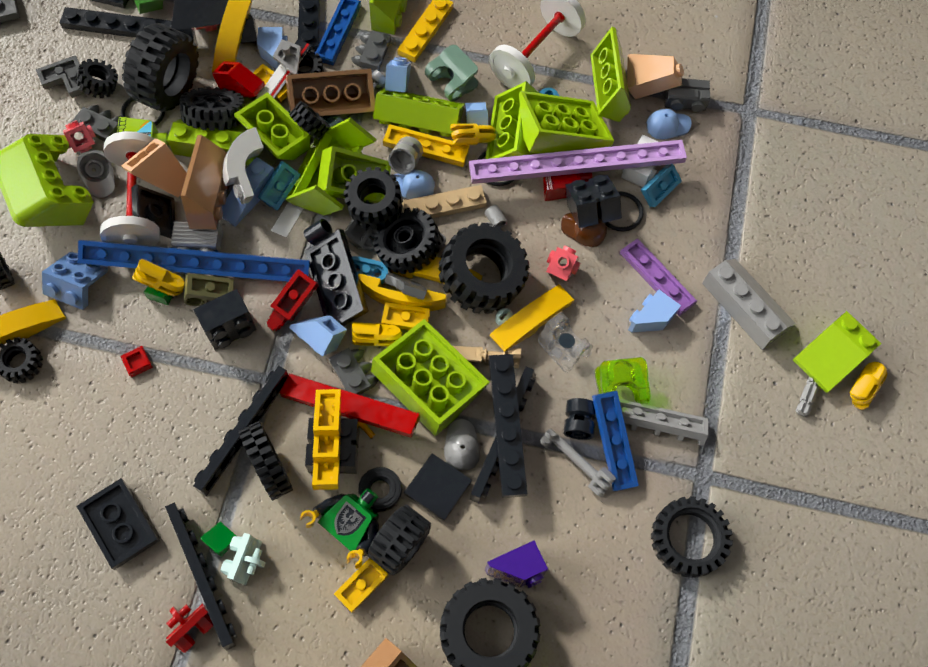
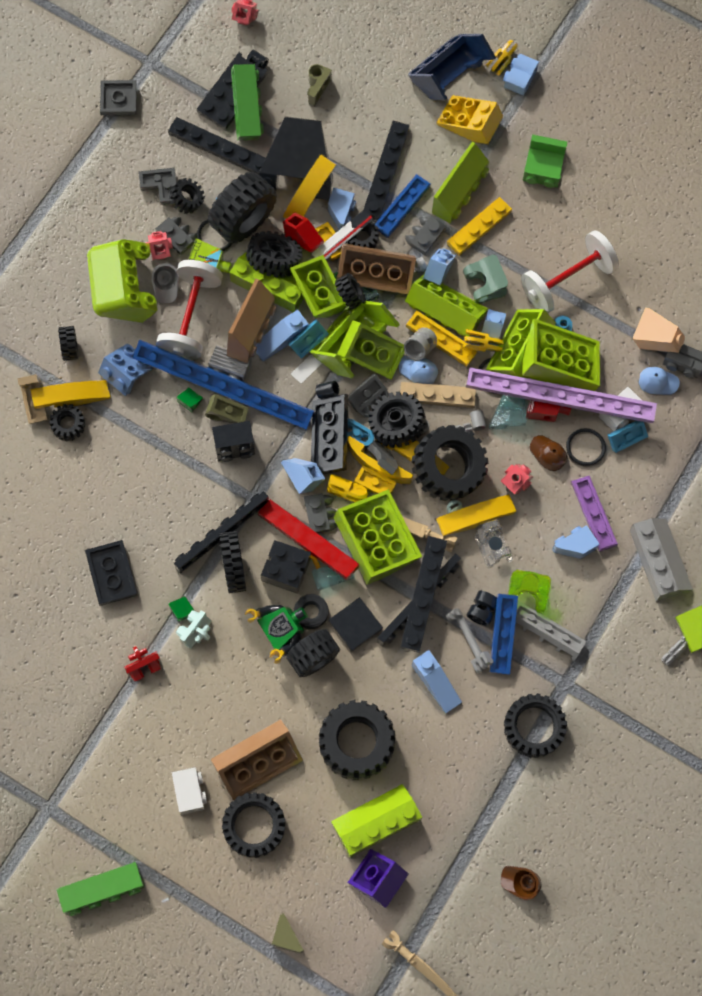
camera: 20 degrees right, 5 degrees up
(136, 361) = (155, 451): red tile -> none
(154, 207) = (203, 329): black tile -> none
(158, 167) = (216, 297): light nougat slope -> none
(158, 278) = (191, 390): yellow arm -> none
(205, 584) = (162, 638): black plate -> none
(243, 148) = (278, 312): white arch -> none
(288, 56) = (351, 224): light grey piece -> none
(291, 300) = (289, 440): red hinge -> none
(326, 440) = (282, 560): yellow slope -> none
(361, 585) = (274, 676): yellow plate -> none
(373, 182) = (375, 363): black tyre -> none
(386, 442) = (326, 577): none -> clear light blue plate
(461, 434) = (389, 590): light grey cap -> none
(519, 566) = (394, 701): dark purple slope -> none
(527, 198) = (509, 412): none -> clear light blue slope
(557, 523) = (436, 681): none -> light blue slope
(583, 200) = (563, 426): black piece -> none
(610, 78) = (620, 326): lime slope -> none

